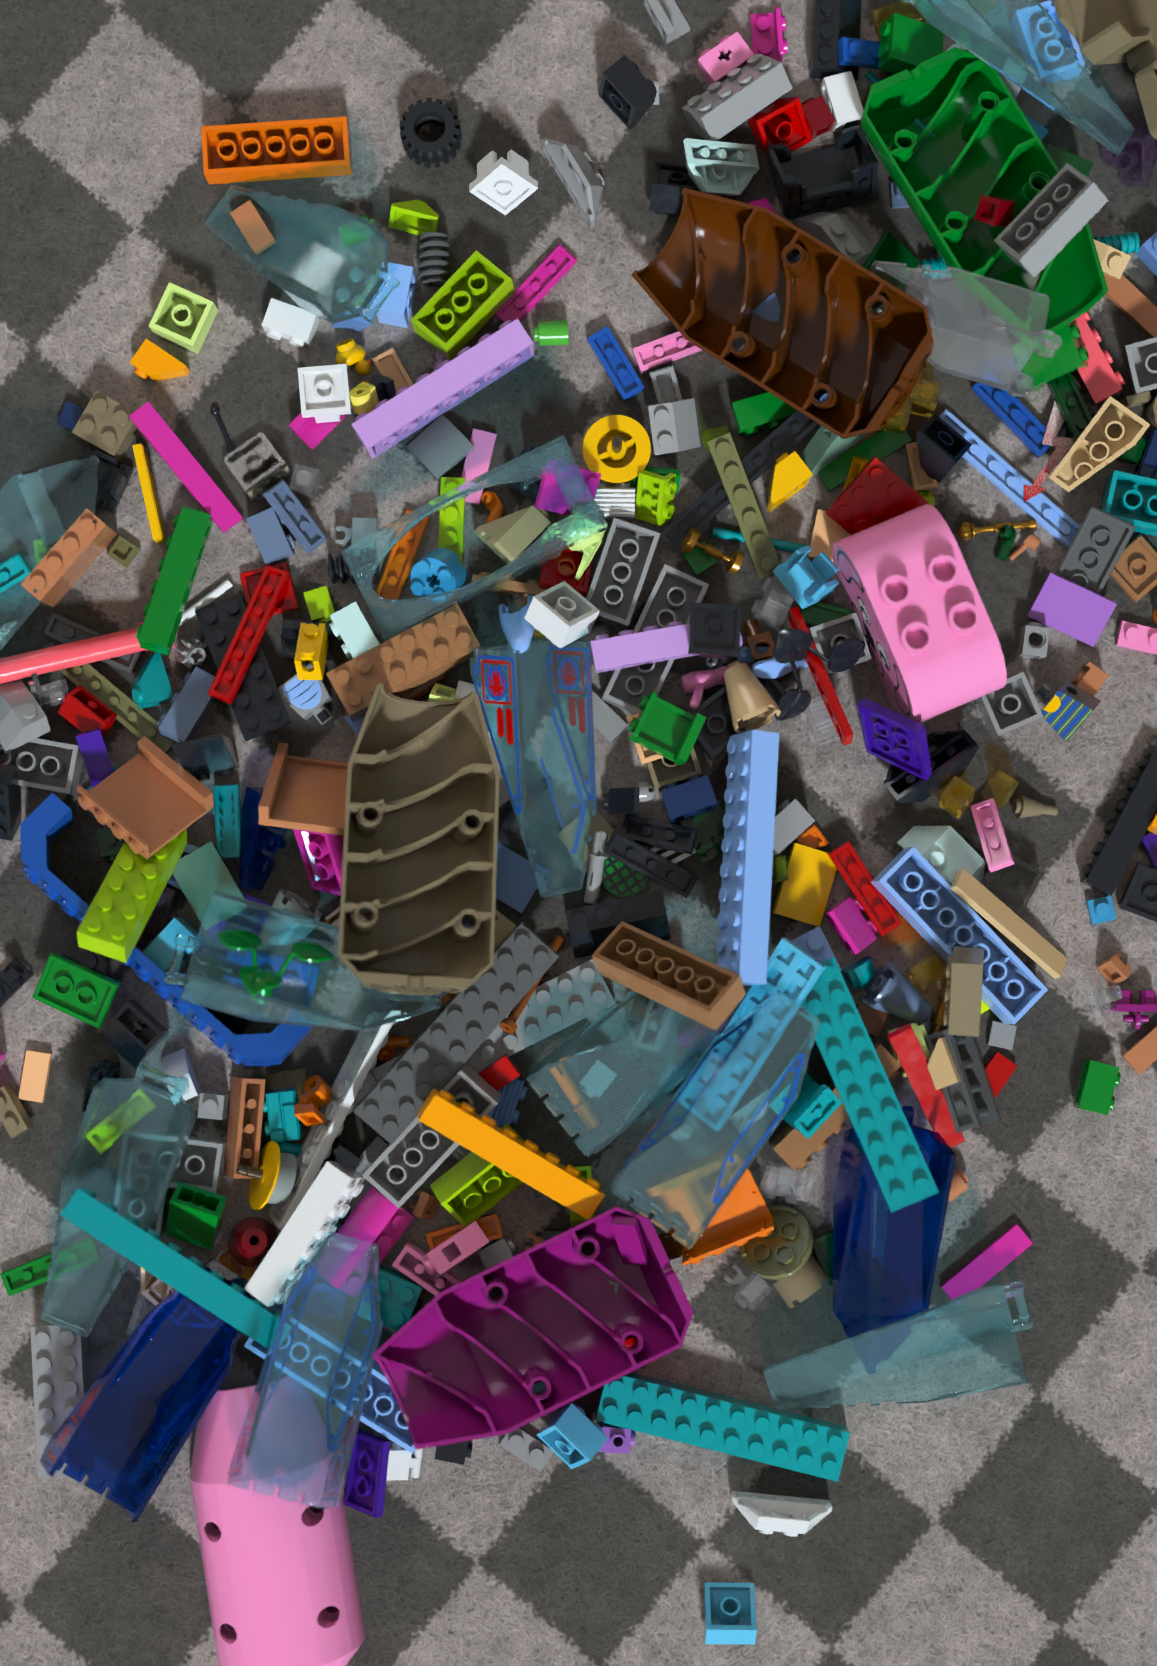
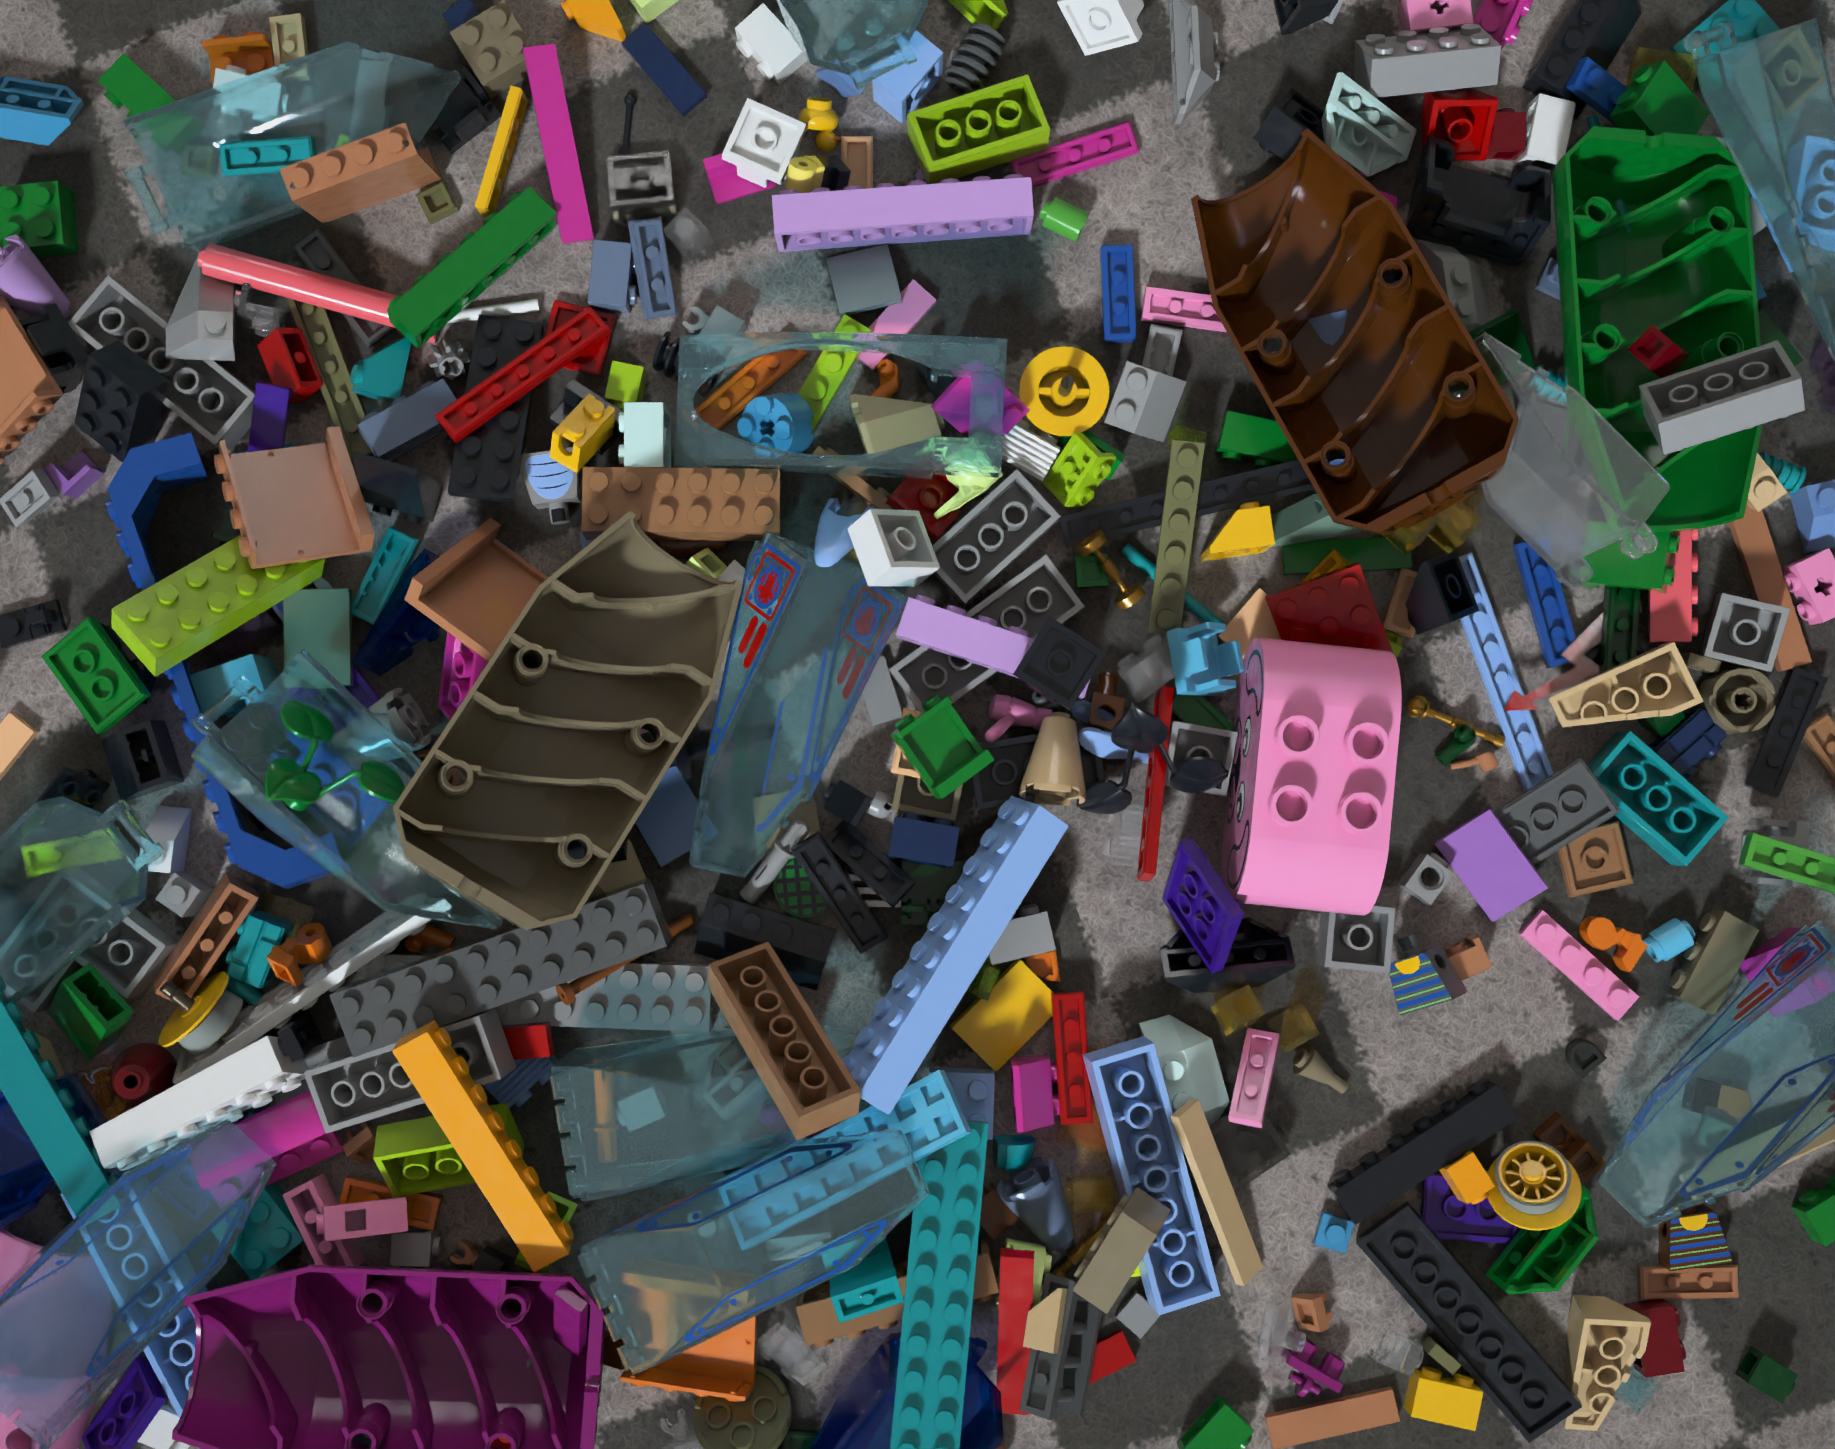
camera: 25 degrees right, 0 degrees up
(227, 378) = (664, 69): none -> dark blue tile

